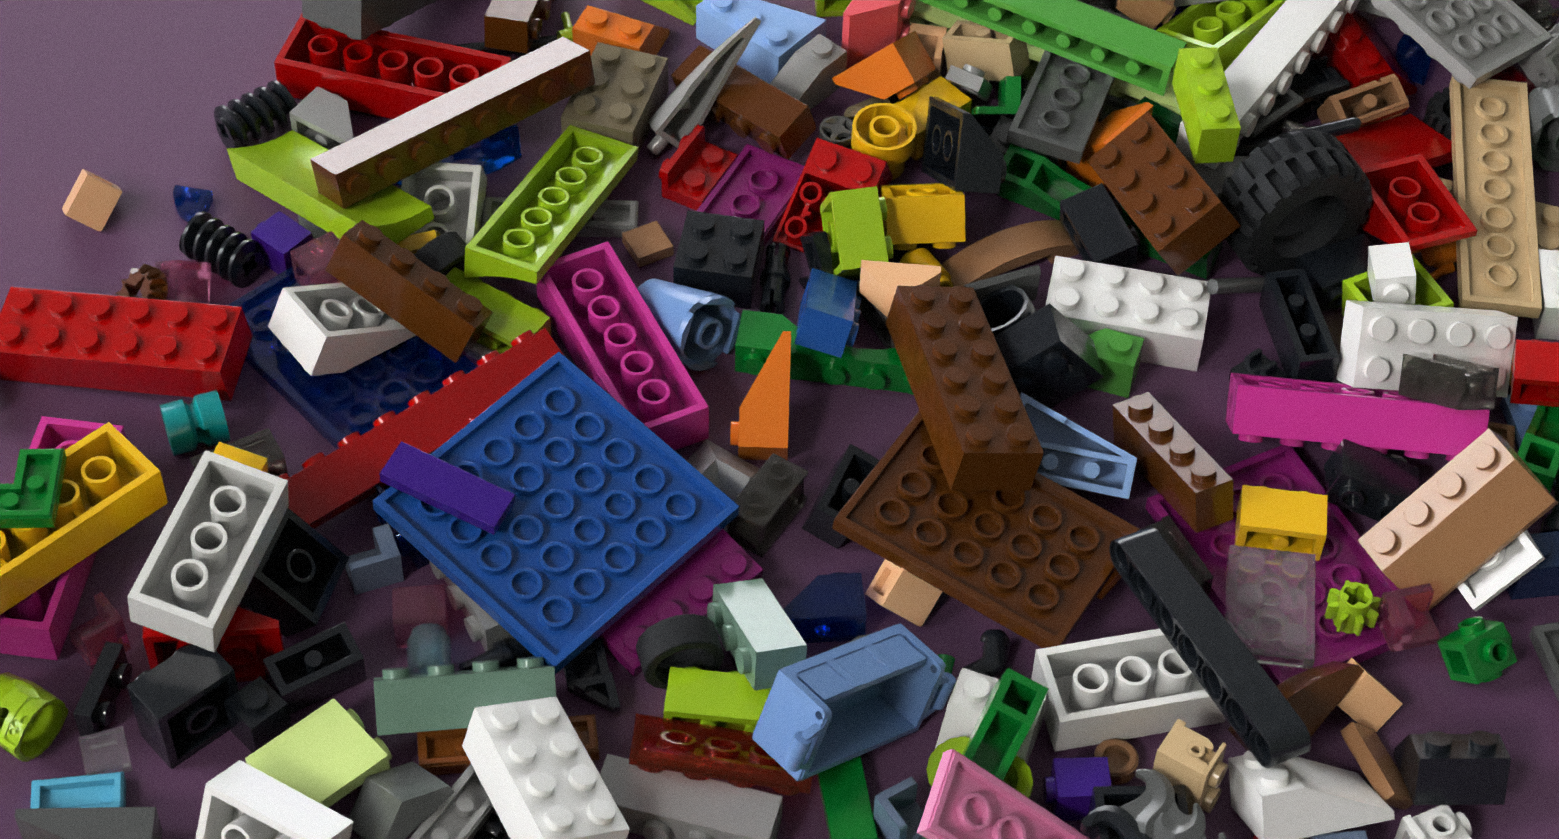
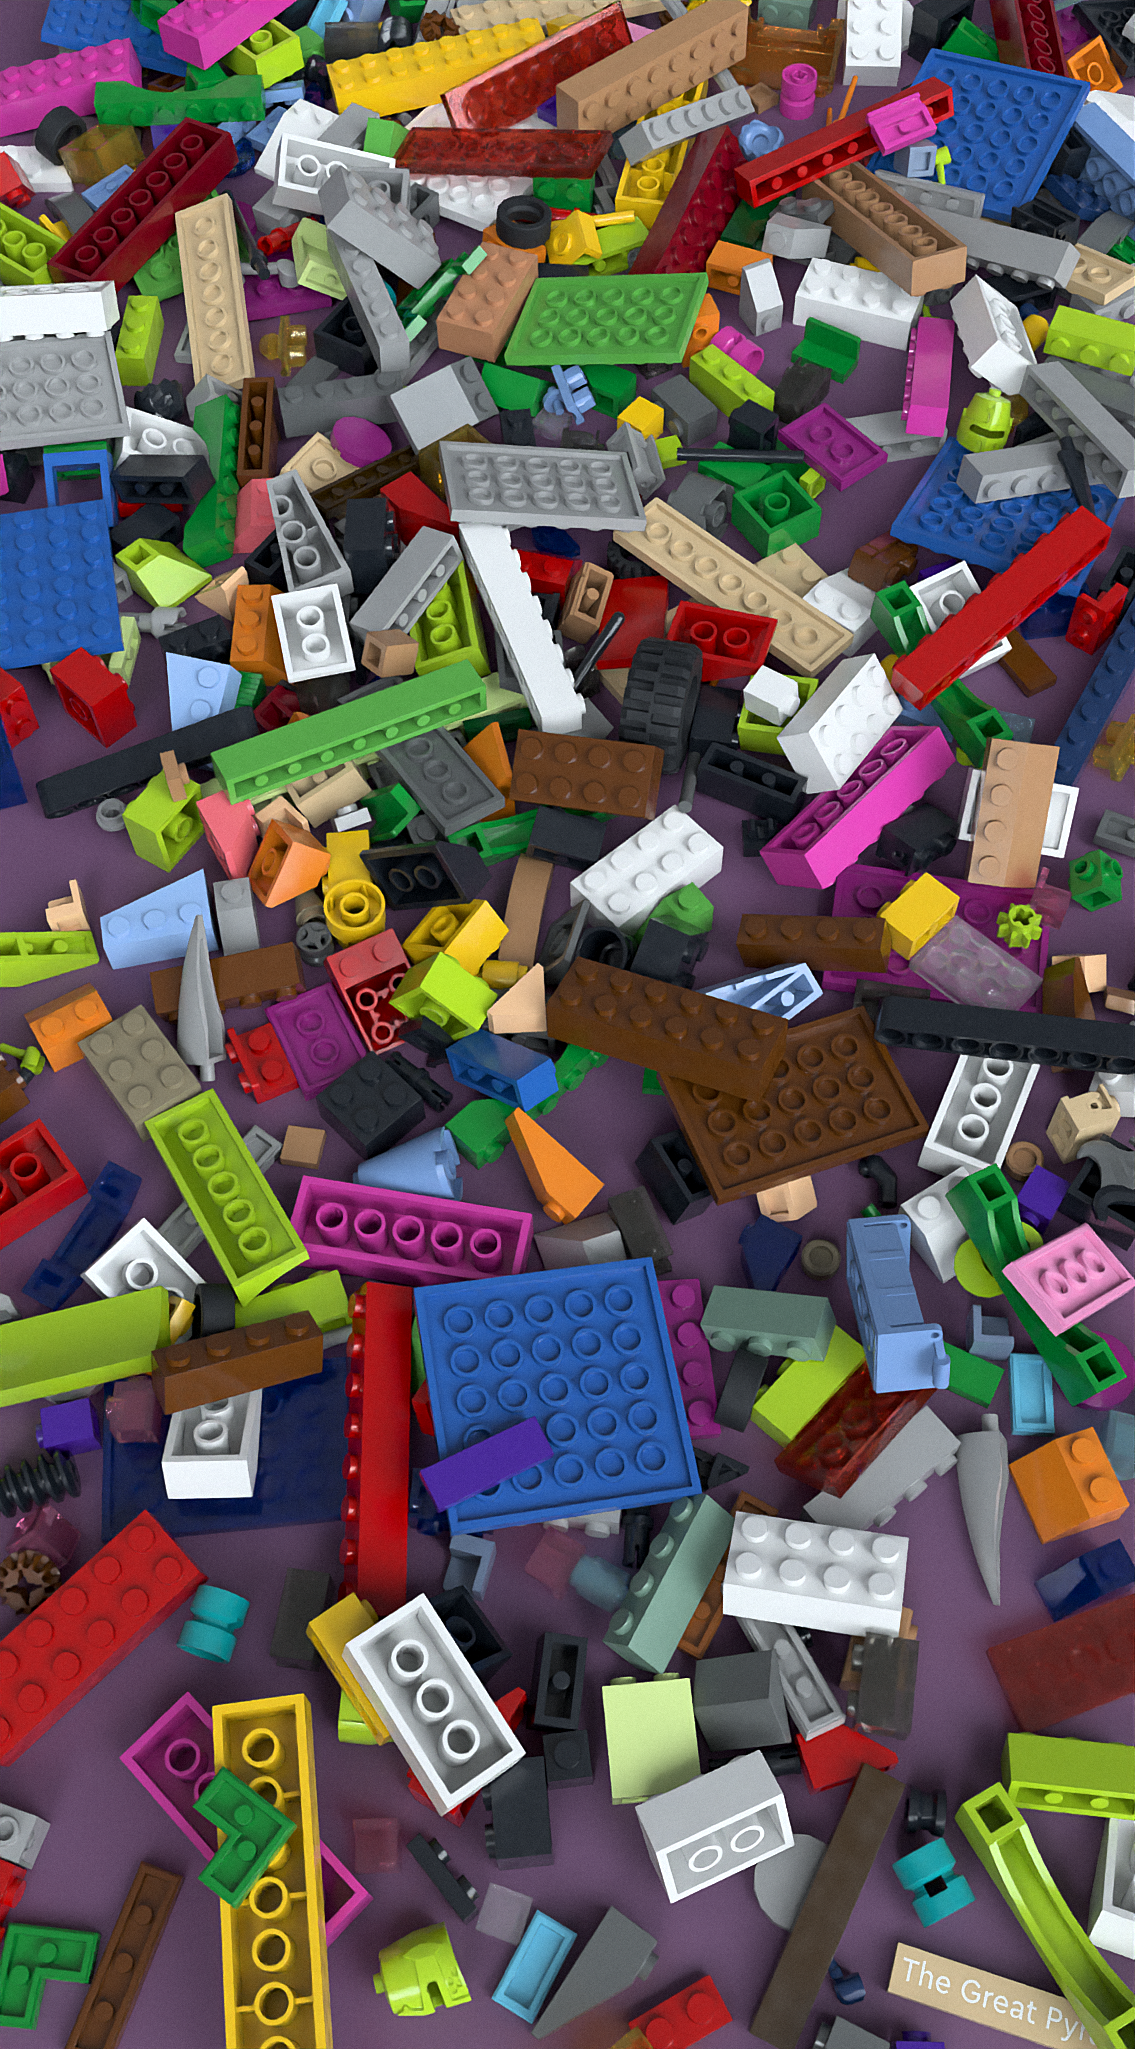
camera: 50 degrees left, 10 degrees up
(452, 122) = (87, 1213): reddish brown brick -> none
(1206, 105) = (551, 689): lime brick -> none
(1449, 382) = (900, 731): clear smoke hinge -> none

